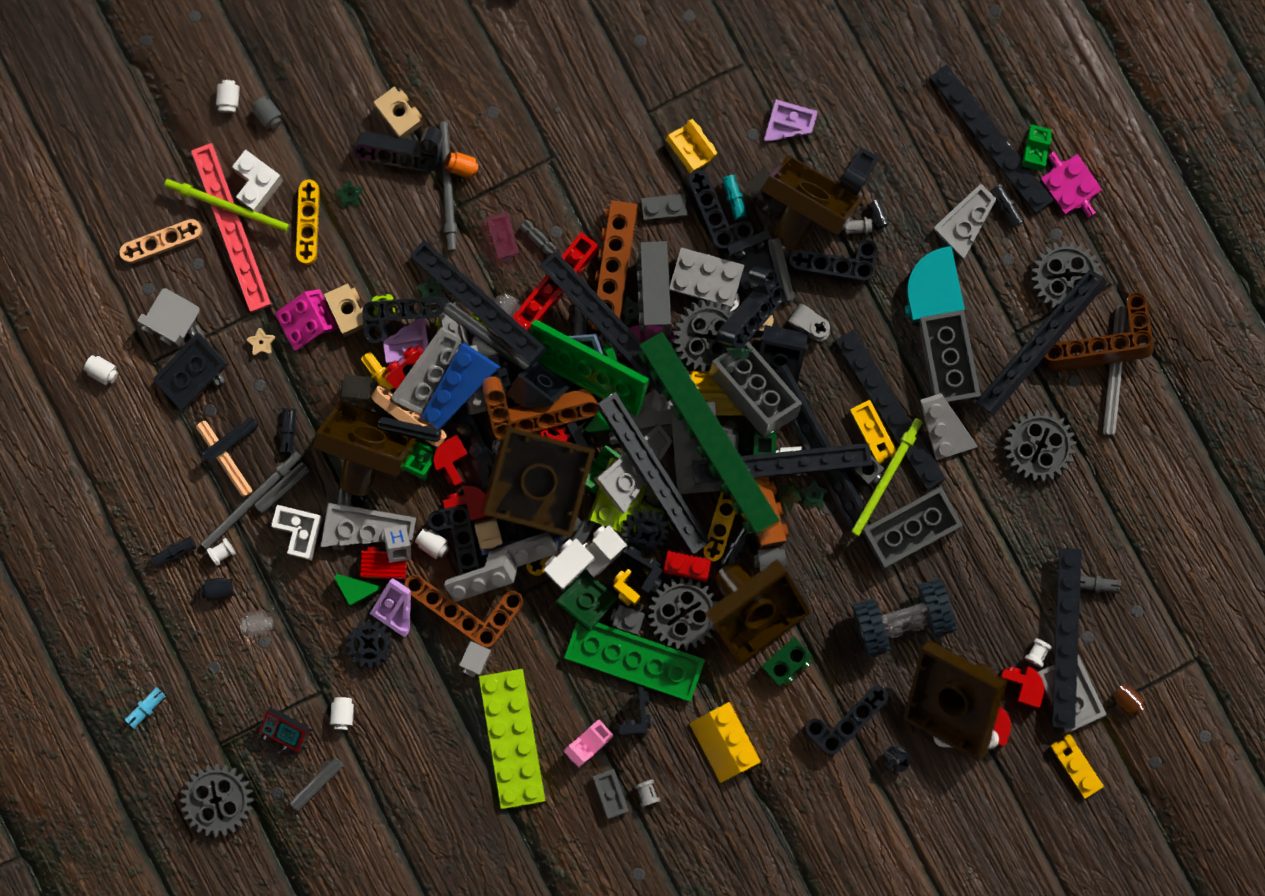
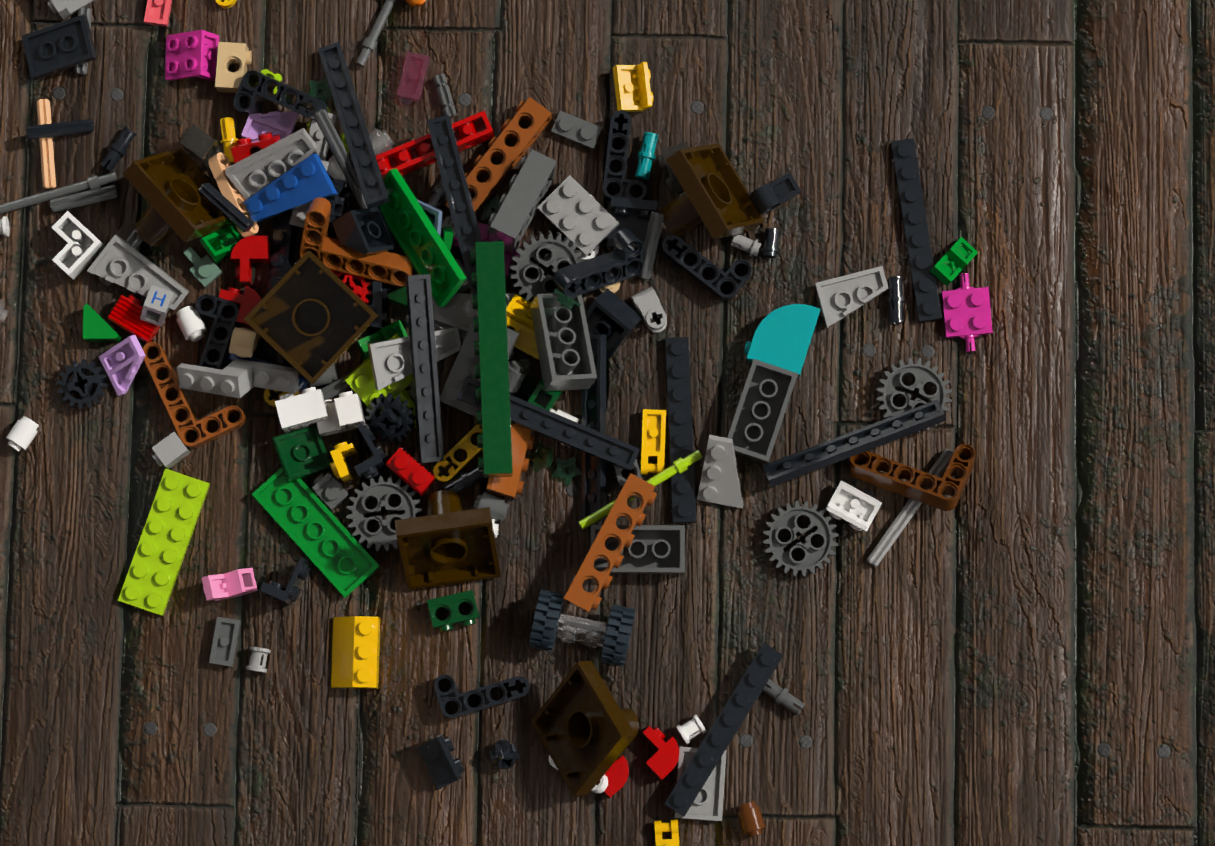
camera: 30 degrees right, 0 degrees up
(267, 340) = (141, 61): tan plate -> none
(417, 492) = (204, 269): none -> sand green plate
(789, 121) = (737, 113): lavender wing -> none
(847, 793) = (441, 762): none -> black bracket
(885, 592) = (633, 487): none -> dark orange brick
(1068, 395) = (853, 506): none -> white bracket

